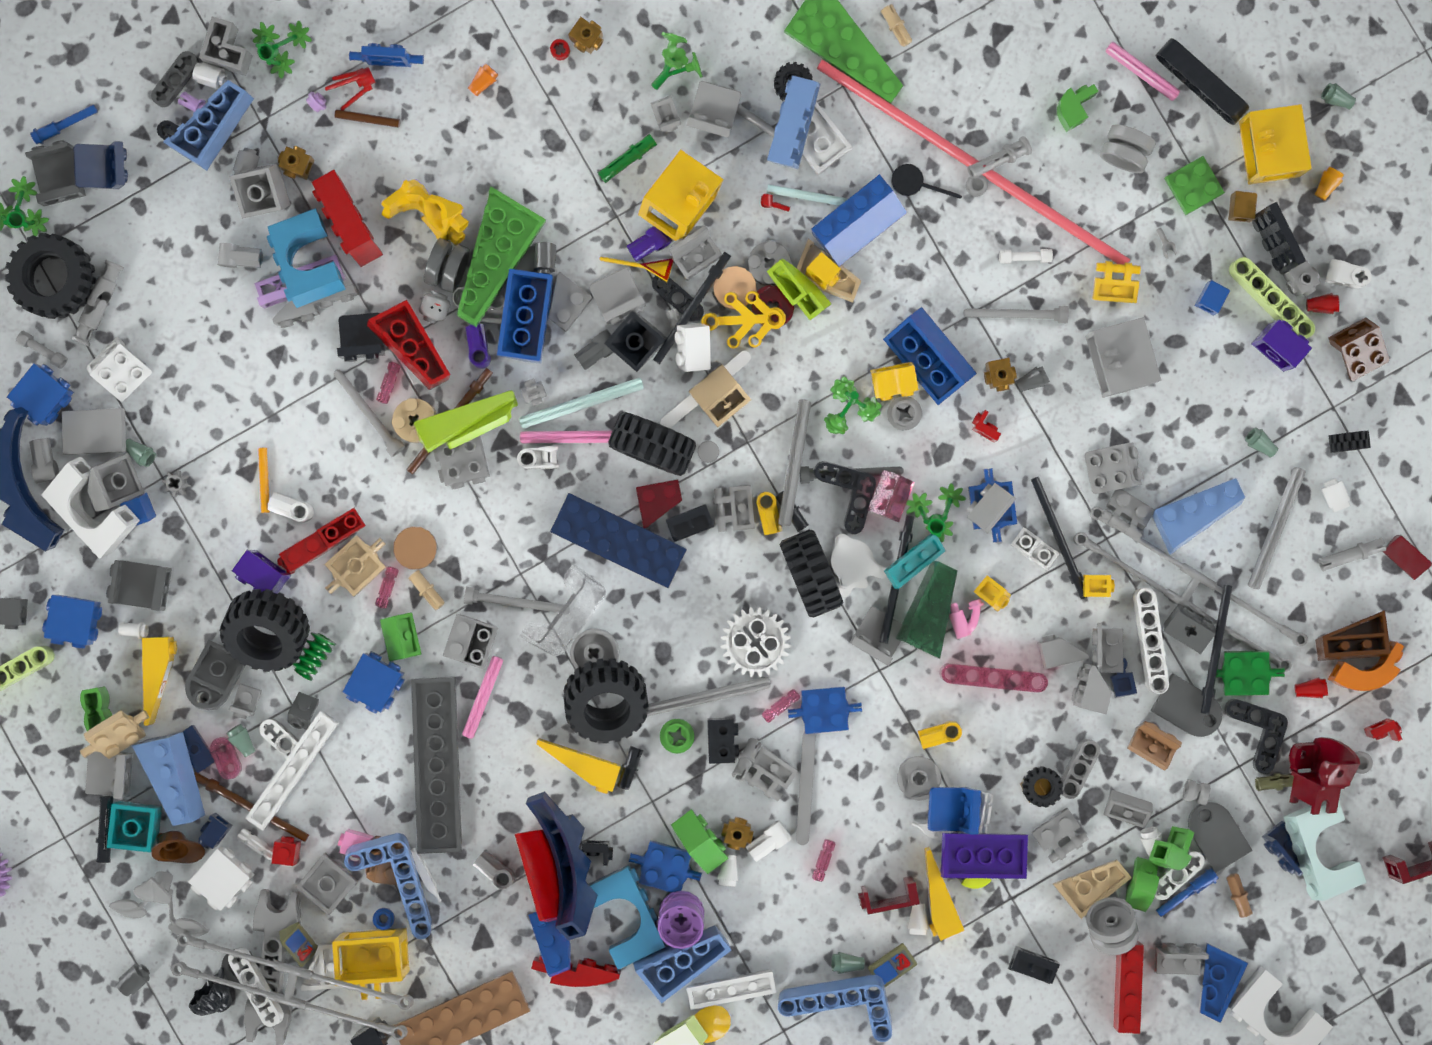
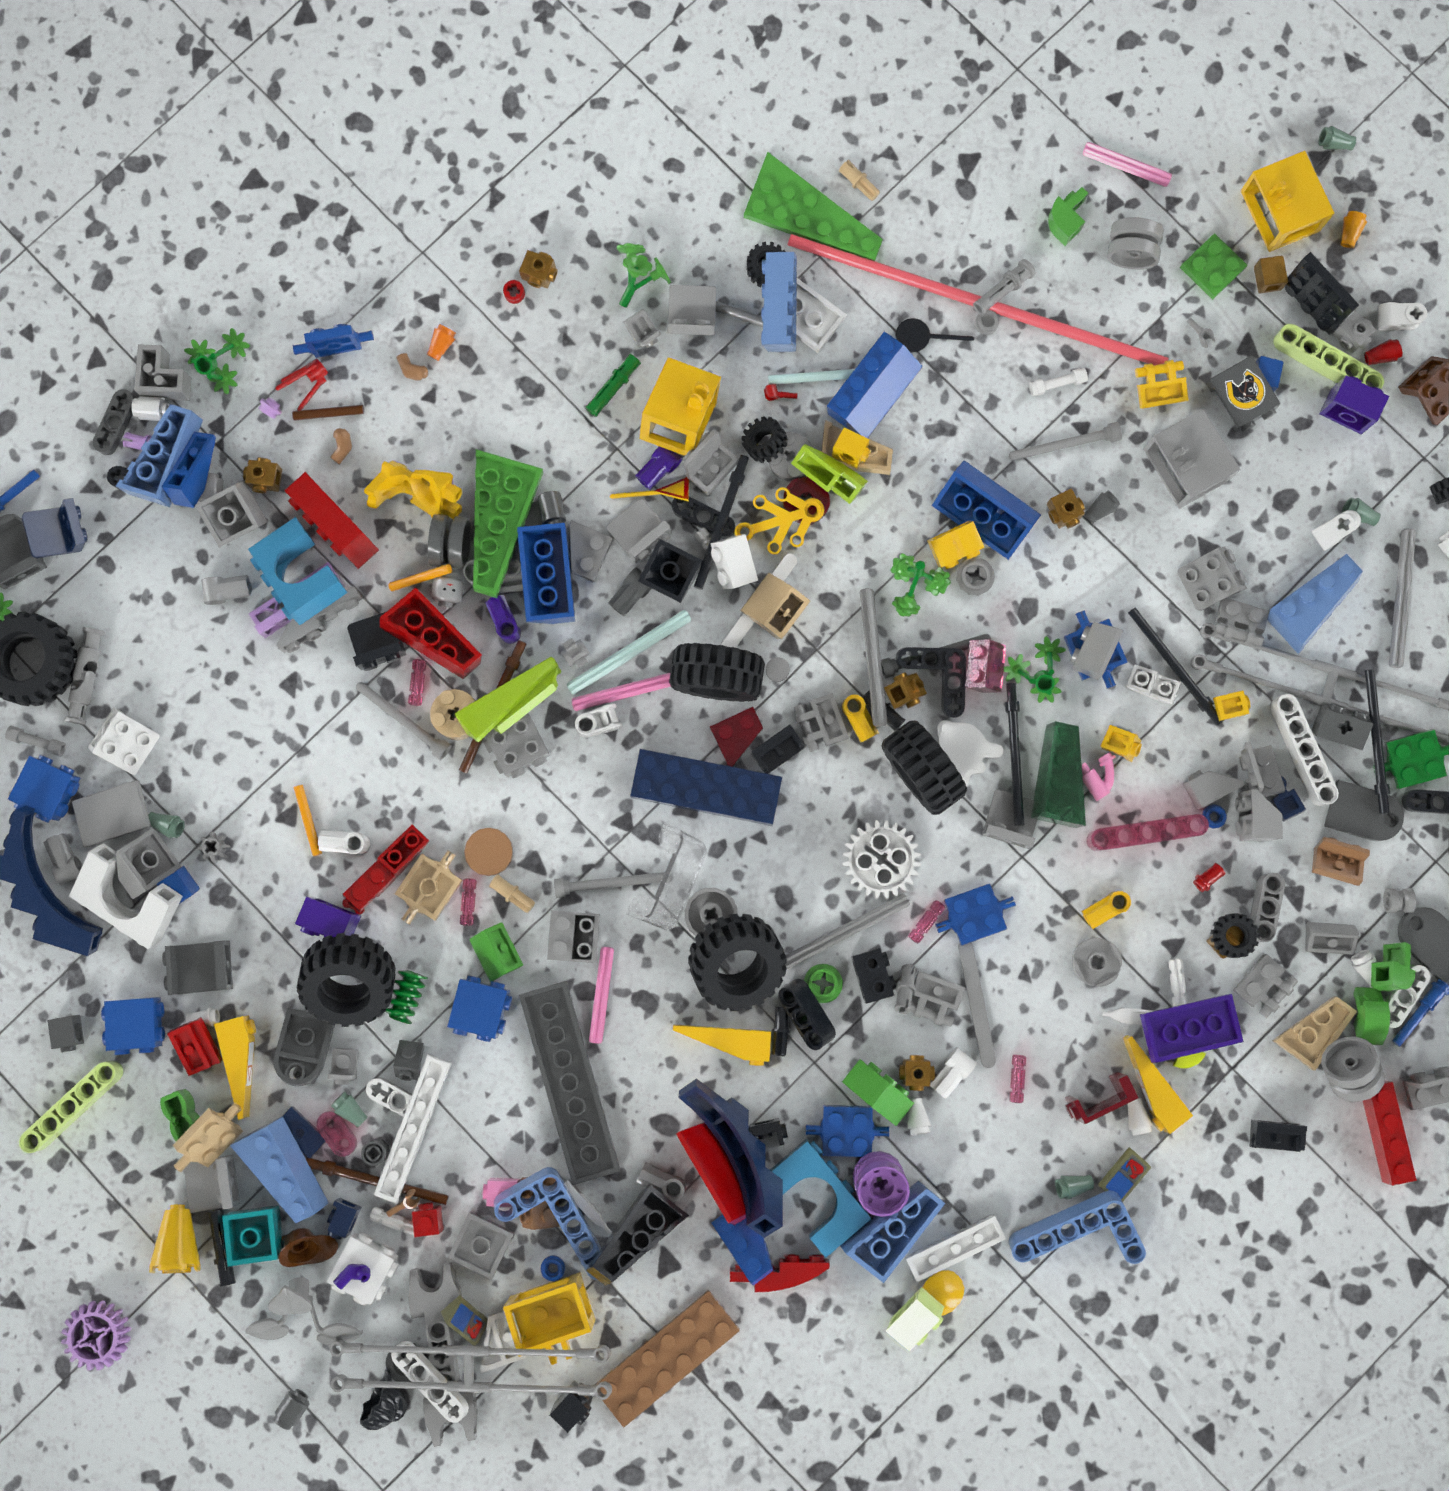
camera: 15 degrees left, 5 degrees down
(66, 816) = (176, 1243): none -> yellow cone
(121, 652) = (195, 1046): none -> red plate
(212, 879) = (352, 1272): none -> dark purple arm
(231, 146) = (190, 472): none -> blue slope
(259, 782) = (380, 1152): none -> dark grey wheel
(273, 832) = (406, 1203): none -> medium nougat hand
(374, 151) = (344, 445): none -> medium nougat arm
(414, 290) = (420, 577): none -> light orange bar
(449, 98) = (411, 370): none -> medium nougat arm
(463, 907) = (639, 1230): none -> black wedge
(655, 759) = (806, 1014): none -> black beam
(734, 280) = (760, 482): light nougat tile -> none
(756, 250) = (757, 432): none -> black tyre
(815, 500) = (905, 690): none -> pearl gold brick
(914, 561) = (1029, 728): teal plate -> none
(954, 809) = (1145, 986): blue bracket -> none
(986, 430) = (1066, 572): red bracket -> none
(1036, 730) = (1209, 877): none -> red pin
(1062, 681) = (1221, 816): none -> blue plate
(1187, 310) = (1245, 394): none -> dark grey panel
(1202, 81) = (1192, 158): black beam -> none
(1233, 452) = (1334, 530): none -> white piece

